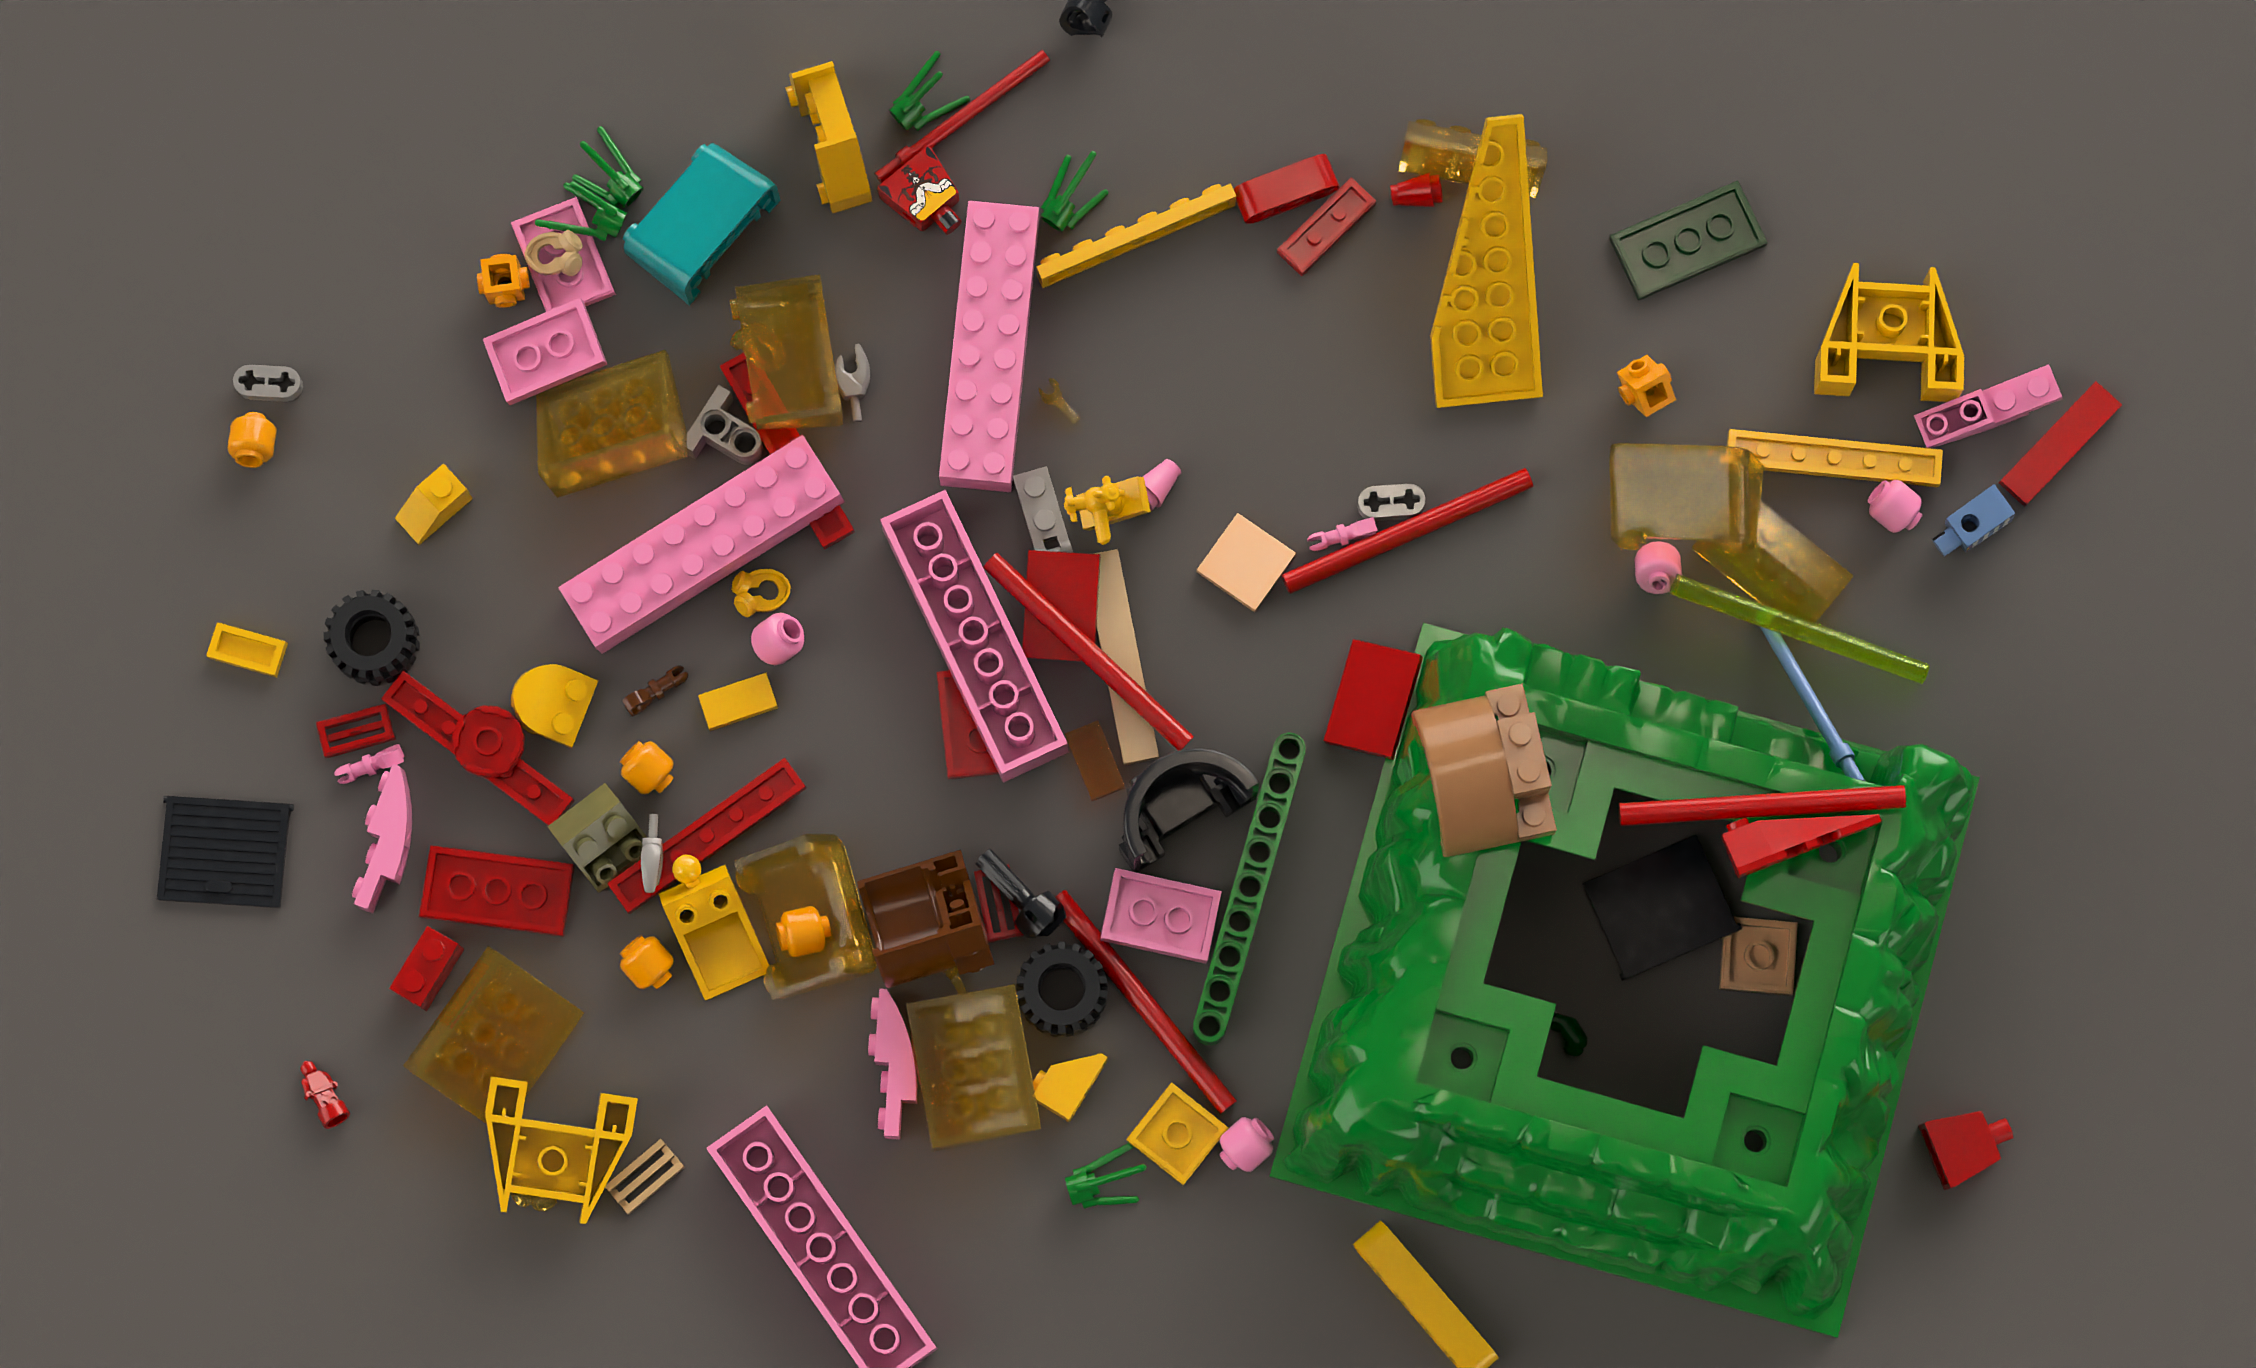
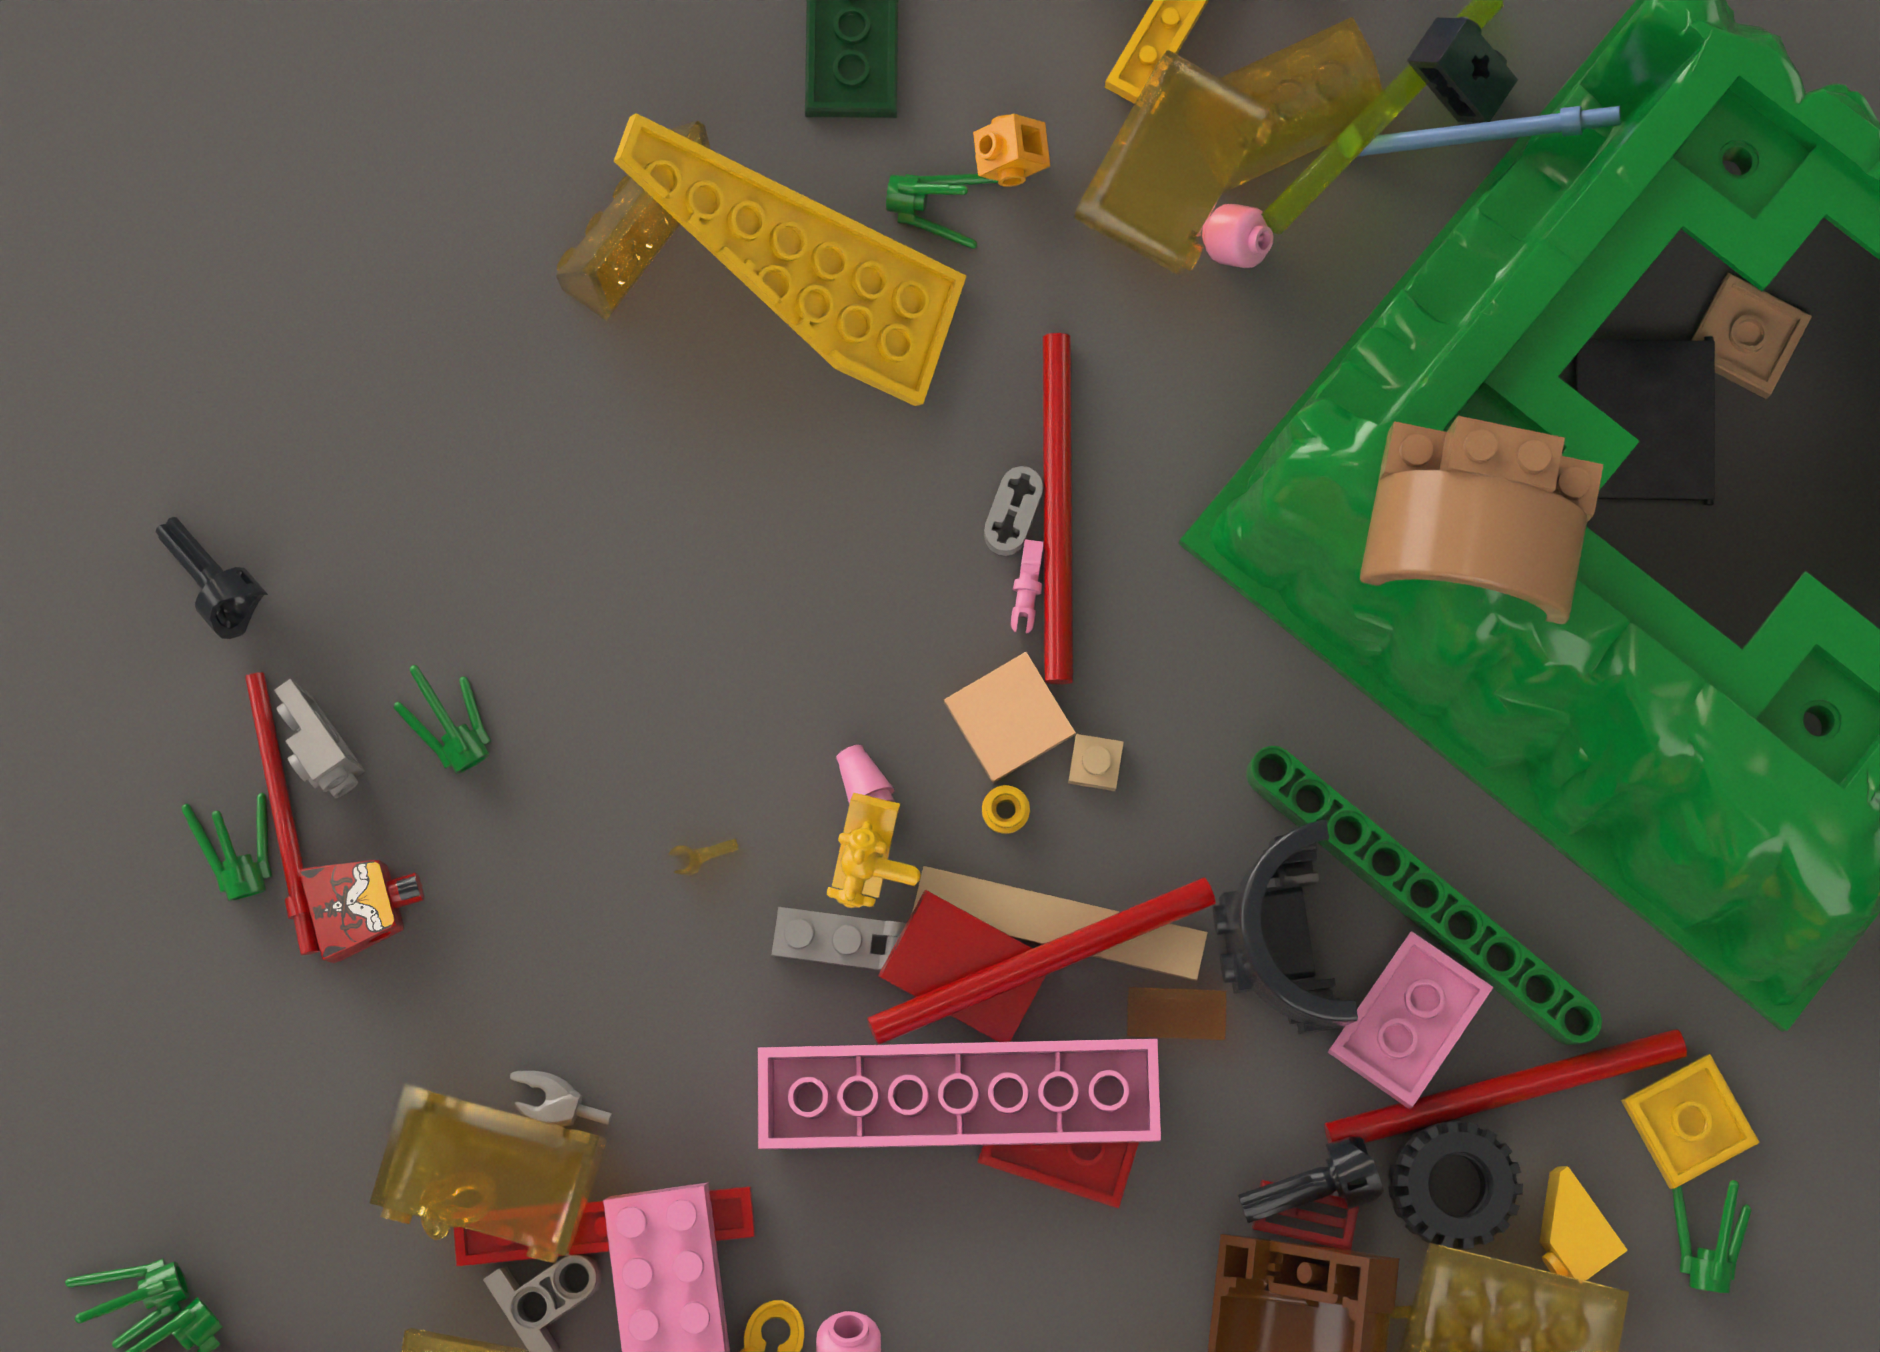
camera: 65 degrees left, 0 degrees up
(699, 219) = (252, 1207): teal windscreen -> none
(838, 150) = (257, 987): yellow wedge -> none
(989, 346) = (593, 908): bright pink brick -> none
(1014, 119) = (317, 746): none -> light grey plate
(1148, 229) = (536, 686): yellow plate -> none
(1181, 576) = (1005, 794): none -> yellow plate
(1241, 633) = (1095, 762): none -> tan plate
(1246, 1144) = (1739, 1041): bright pink head -> none
(1286, 188) = (566, 460): red beam -> none
(1326, 226) = (635, 434): red tile -> none
(1373, 699) = (1249, 640): red tile -> none
(1418, 191) = (645, 306): red cone -> none
(1571, 1032) = (1746, 591): dark green arm -> none
(1584, 334) = (910, 194): none -> green plant
(1762, 805) = (1665, 207): red piece -> none
(1773, 841) = (1728, 214): wedge -> none
(1843, 685) = (1463, 69): none -> black brick

